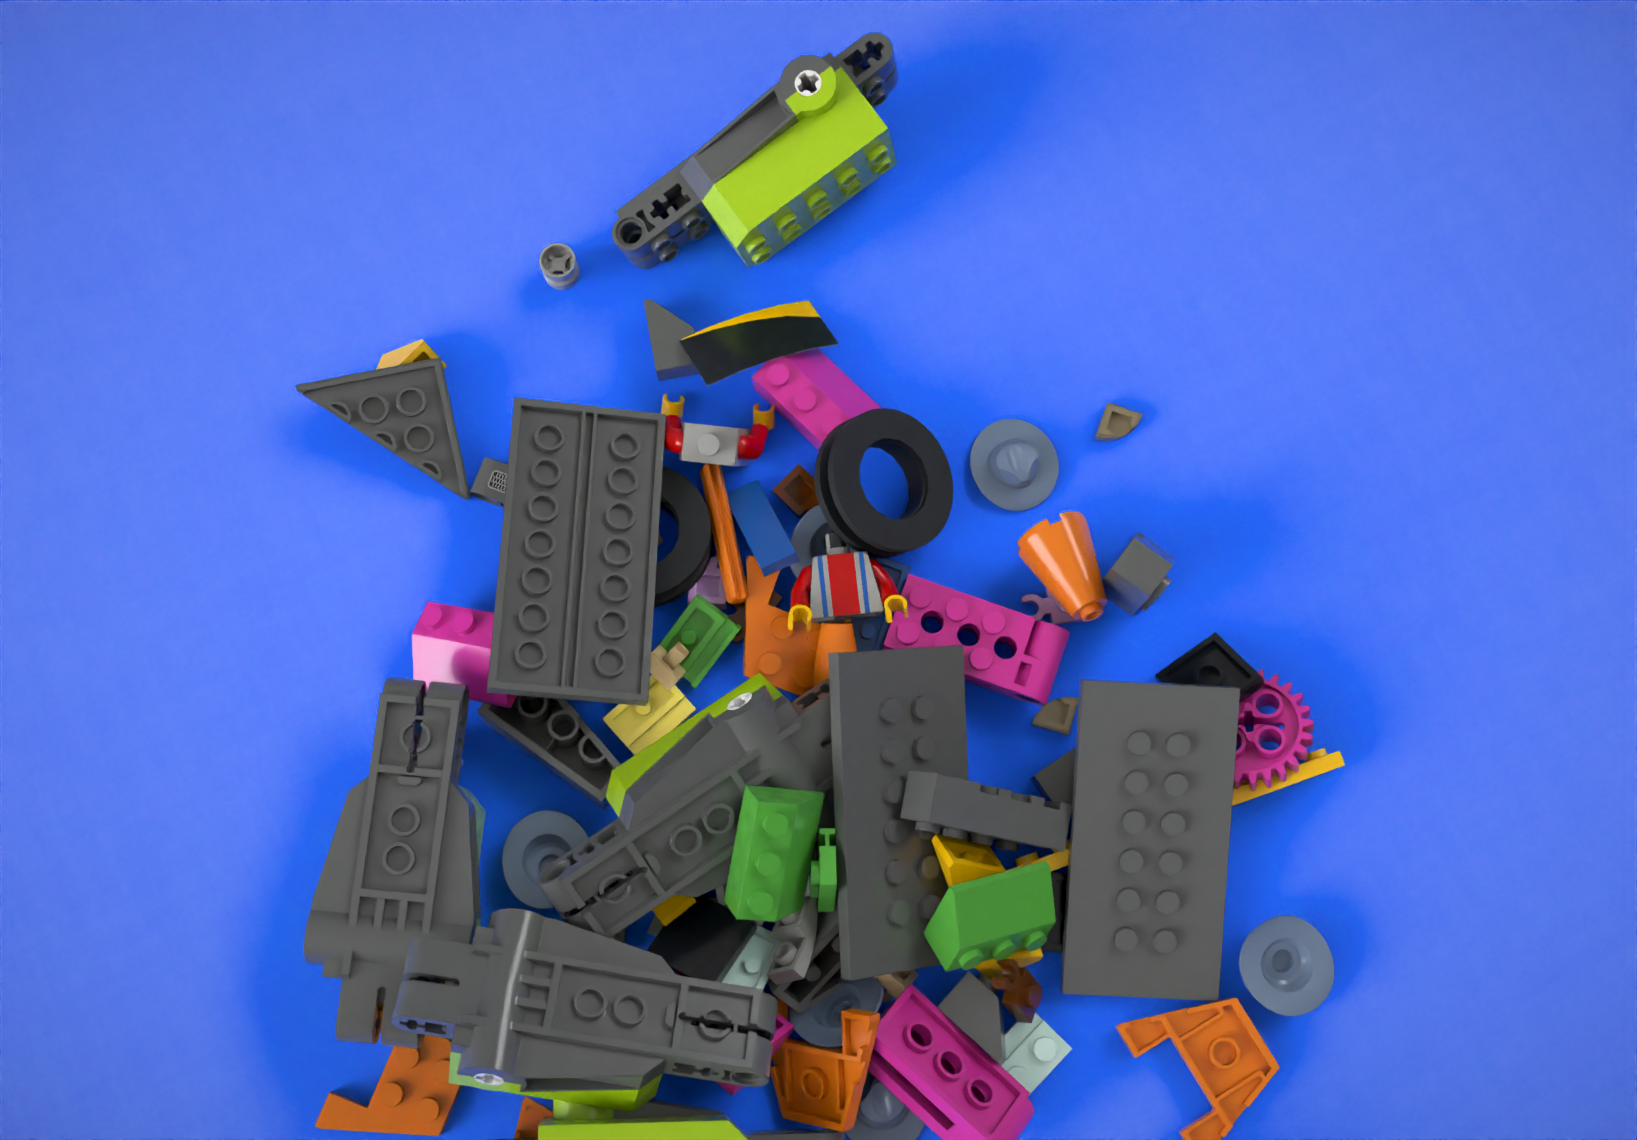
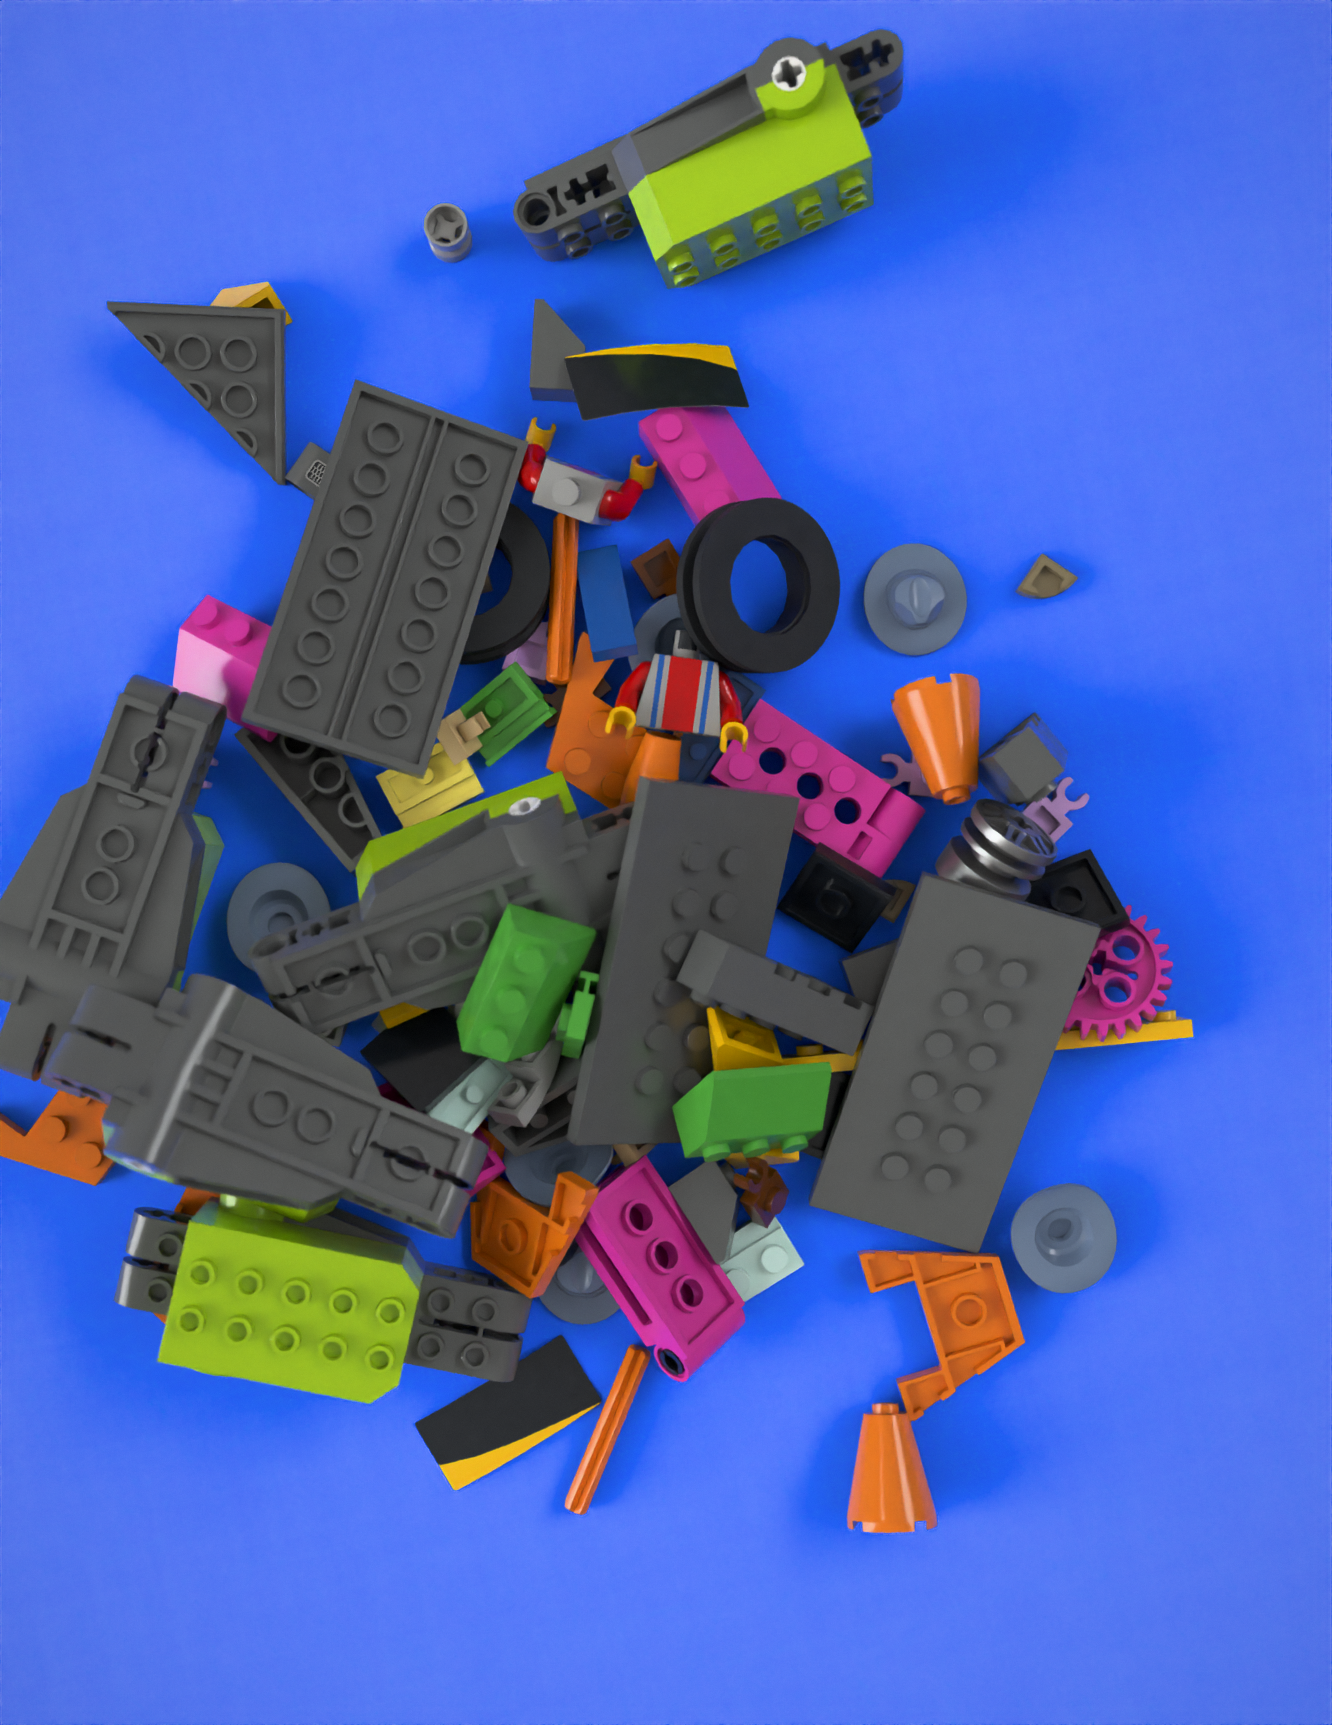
camera: 15 degrees right, 10 degrees up
(1015, 724) = (836, 898): none -> black tile
(1138, 648) = (997, 851): none -> flat silver wheel
(1170, 617) = (1051, 813): none -> lavender plate

